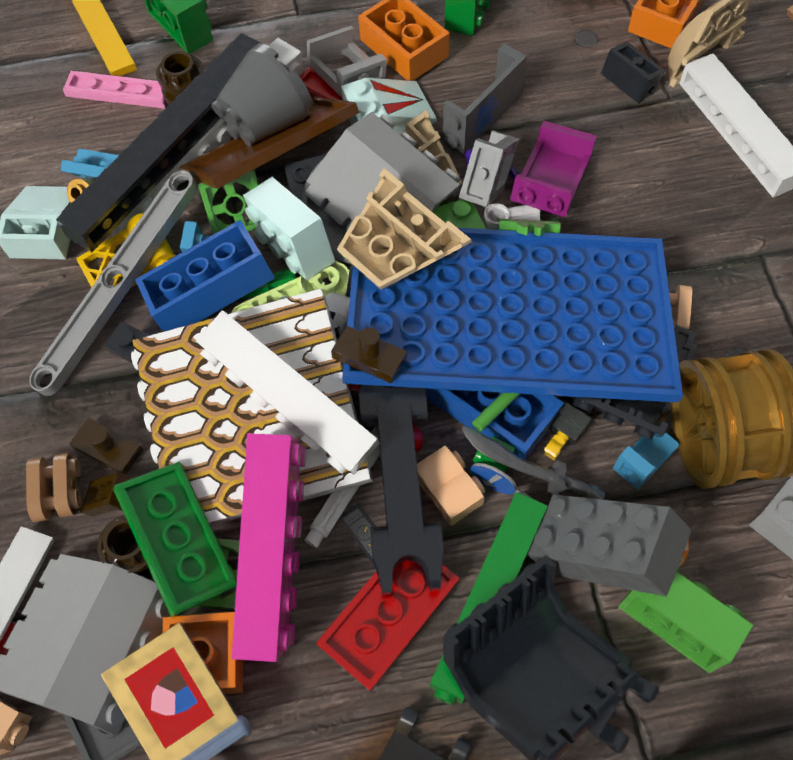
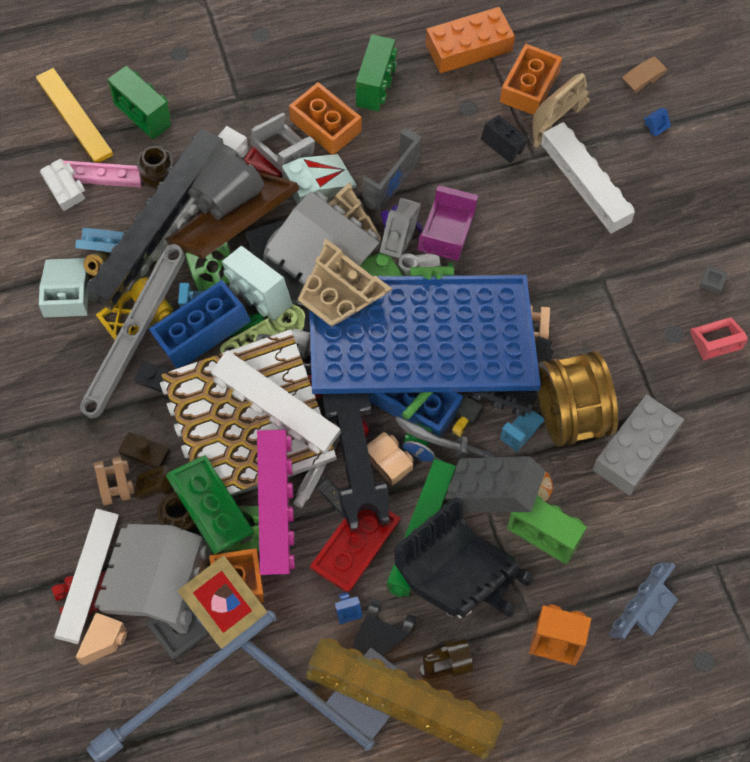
camera: 10 degrees left, 0 degrees up
(63, 96) = (61, 183): none -> white brick
(366, 719) = (348, 608): none -> blue tile
(369, 353) = (329, 372): dark brown tile -> none

